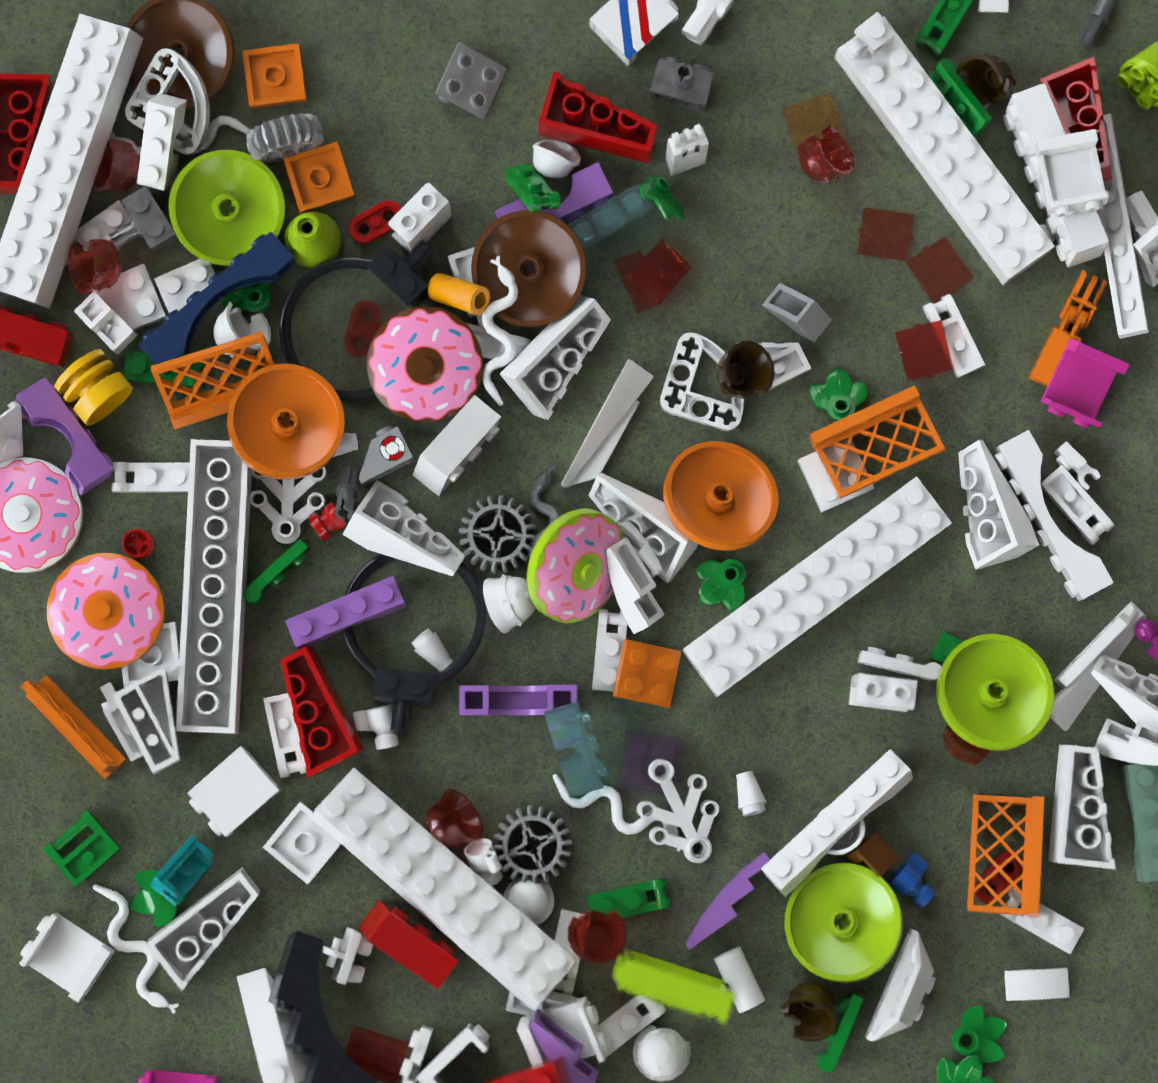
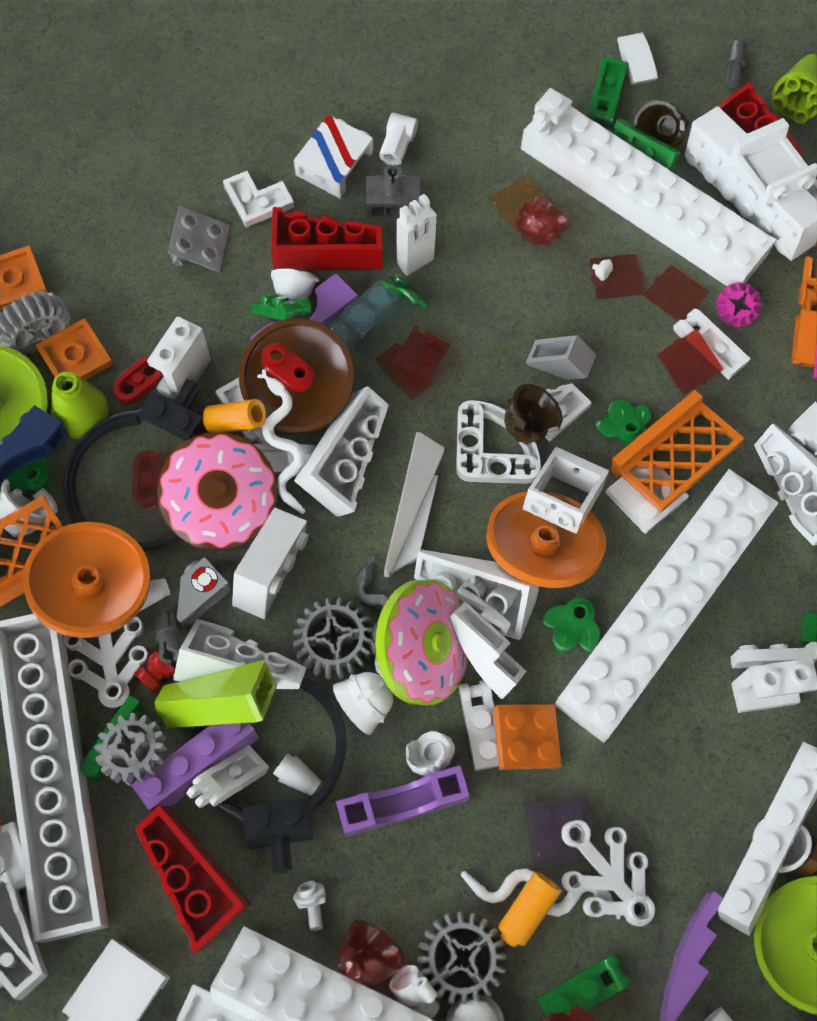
camera: 20 degrees left, 15 degrees down
(284, 734) = (158, 913): white plate -> none
(303, 589) = (117, 746): none -> light grey gear
(371, 636) = (227, 777): none -> white hinge
(379, 565) = (218, 698): none -> lime slope
(379, 721) = (259, 868): white piece -> none
(417, 757) = (310, 896): none -> white plate
(521, 261) = (286, 367): none -> red plate
(540, 56) = (256, 205): none -> white plate
(554, 664) = (430, 753): none -> white hair
(569, 730) = (467, 813): clear light blue arch -> none
(601, 822) = (528, 910): none -> light orange brick
(750, 796) = (674, 834): white cone -> none
(771, 435) = (562, 467): none -> white window
(872, 225) = (603, 269): none -> white rock
(996, 288) = (734, 292): none -> dark pink gear

